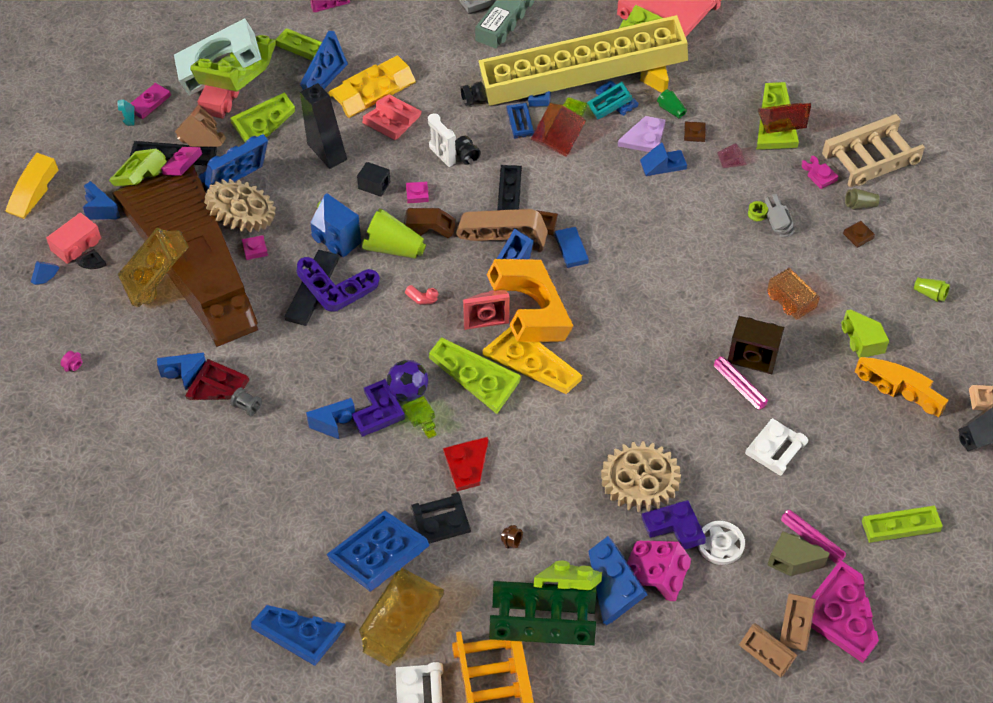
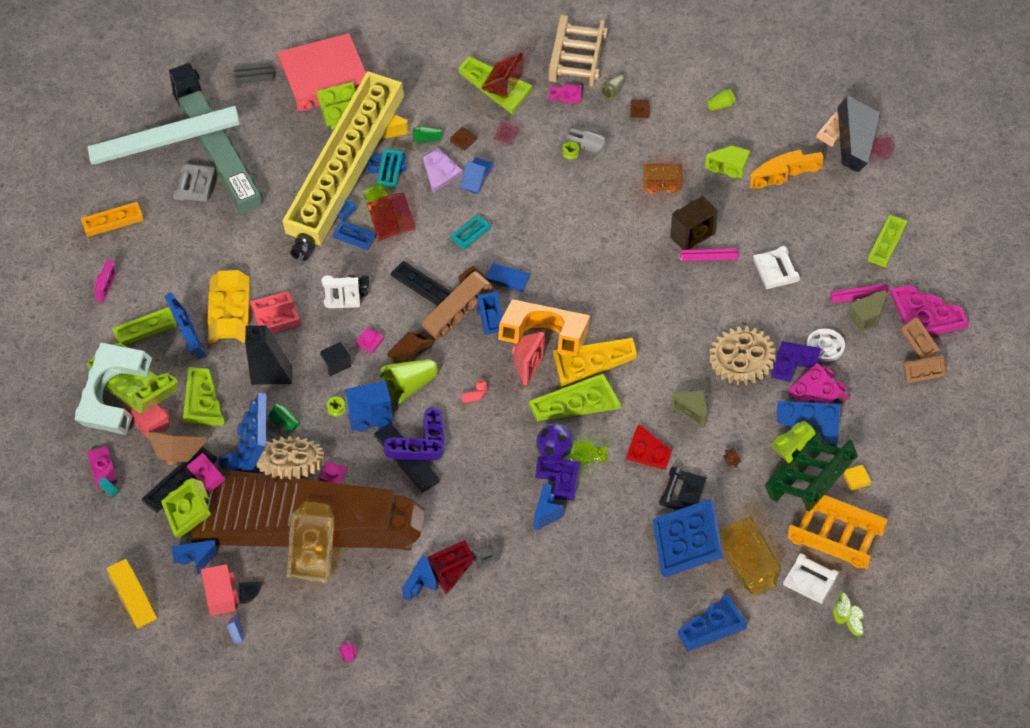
camera: 55 degrees left, 0 degrees up
(286, 179) = (282, 416): none -> green cone
(546, 468) = (691, 405): none -> olive slope
(578, 664) = (857, 477): none -> yellow tile
(596, 196) = (460, 242): none -> teal tile

